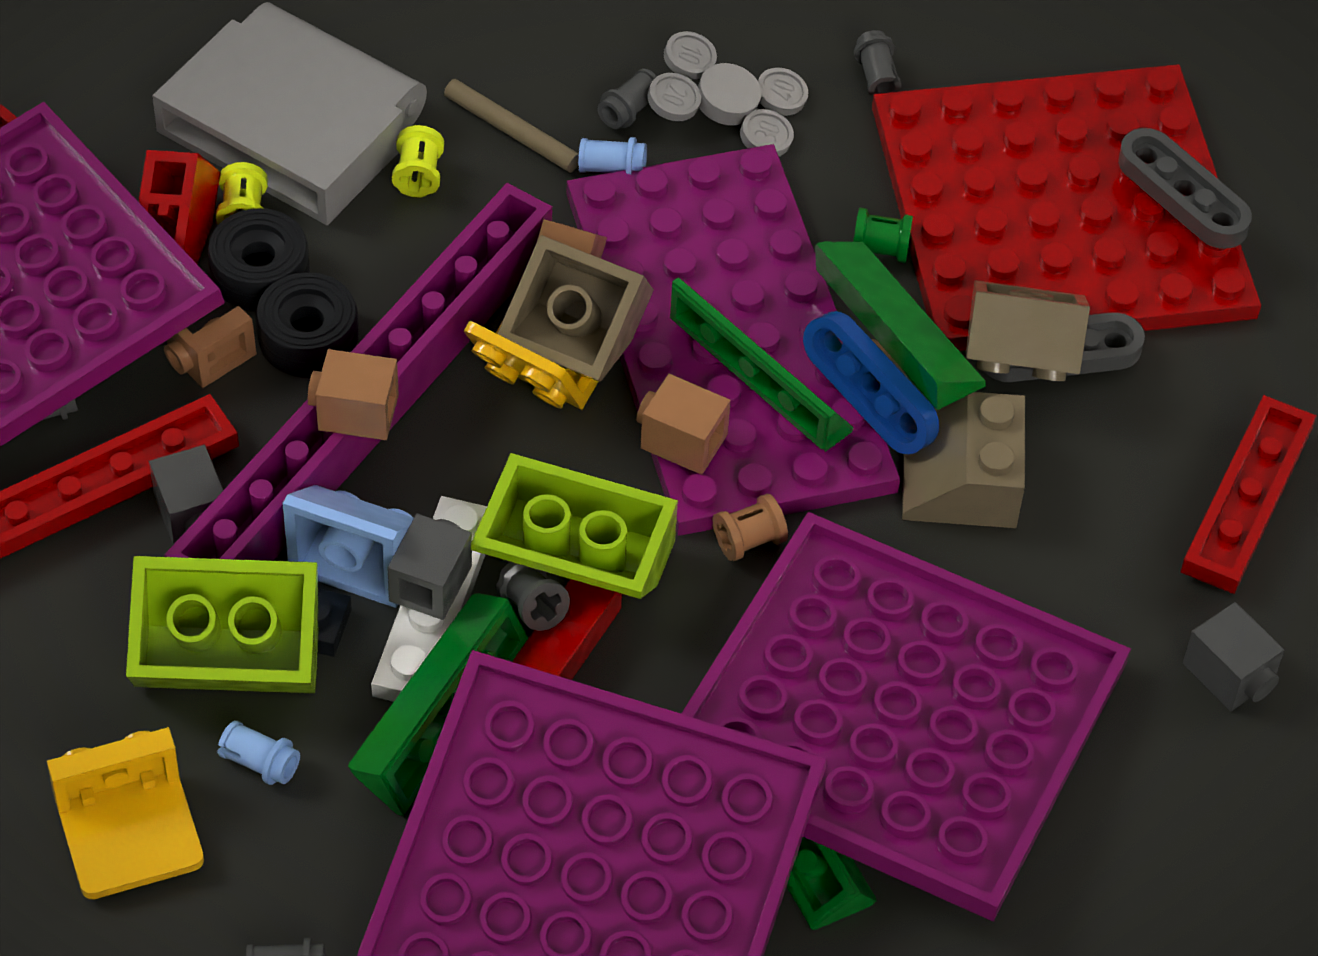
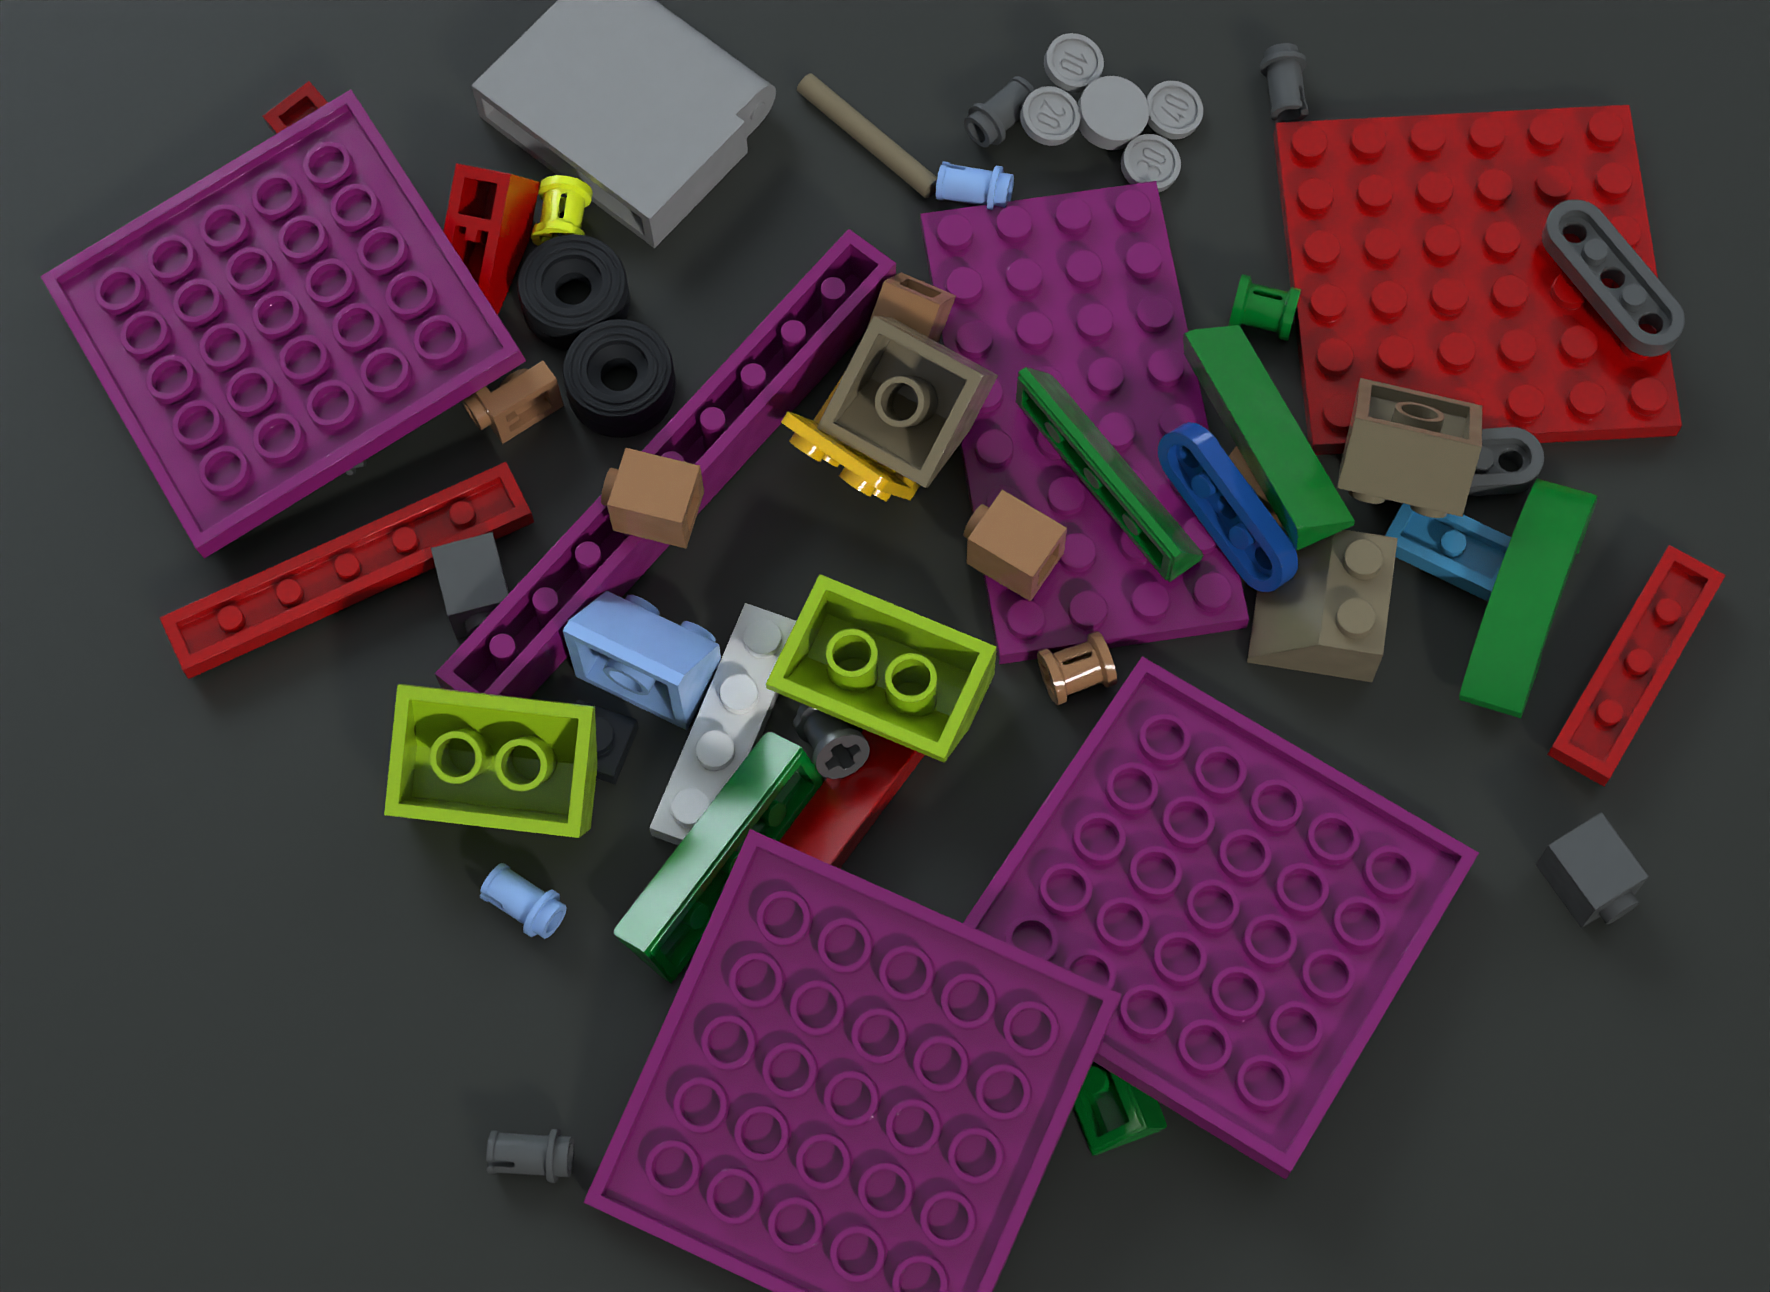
camera: 10 degrees right, 15 degrees up
(125, 813) = (376, 969): yellow bracket -> none
(412, 160) = (749, 157): neon yellow bush -> none
(430, 566) = (721, 701): dark grey brick -> none
(1091, 417) = (1451, 549): none -> dark azure plate
(1143, 446) = (1526, 597): none -> green slope

